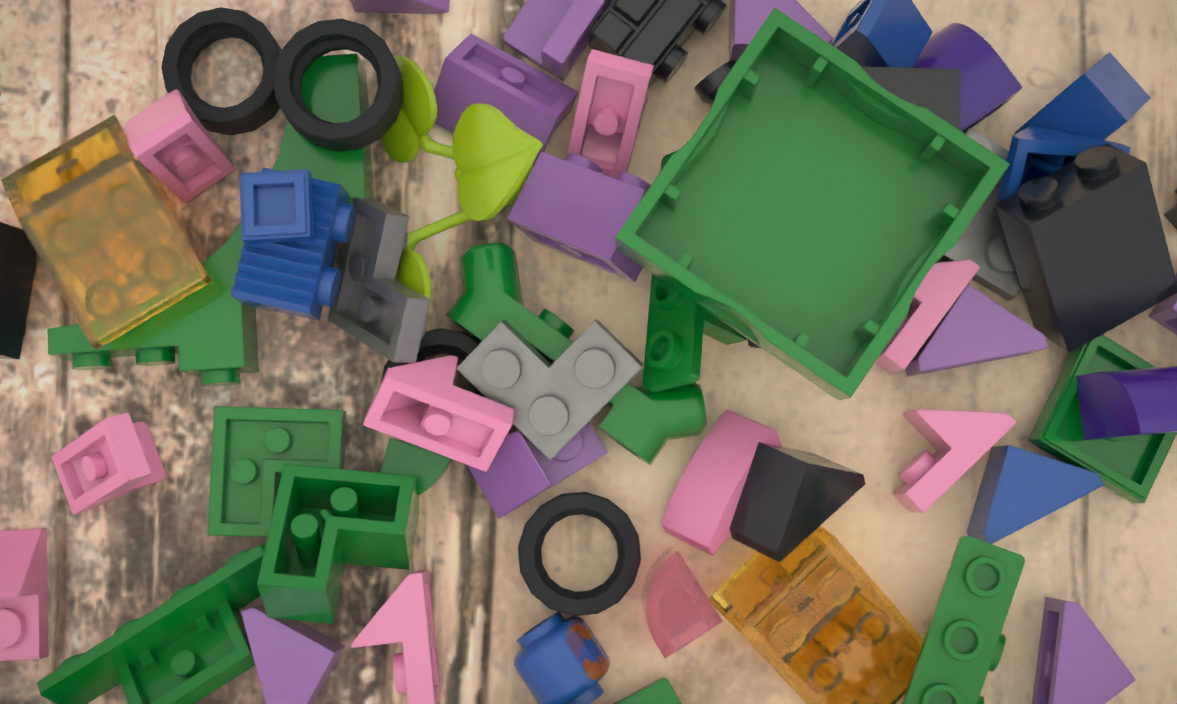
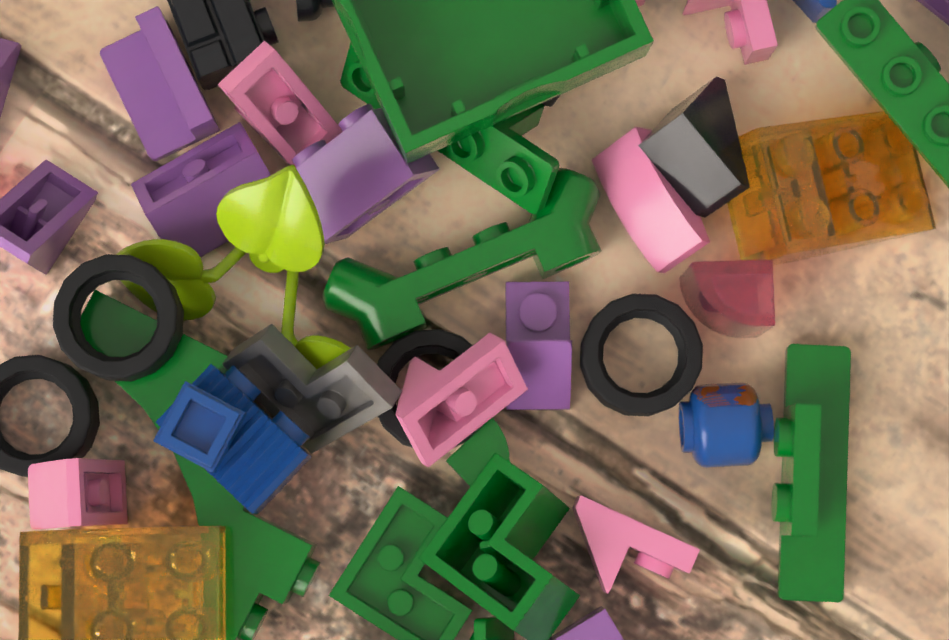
camera: 60 degrees left, 0 degrees up
(550, 399) = (500, 293): flat silver plate -> none

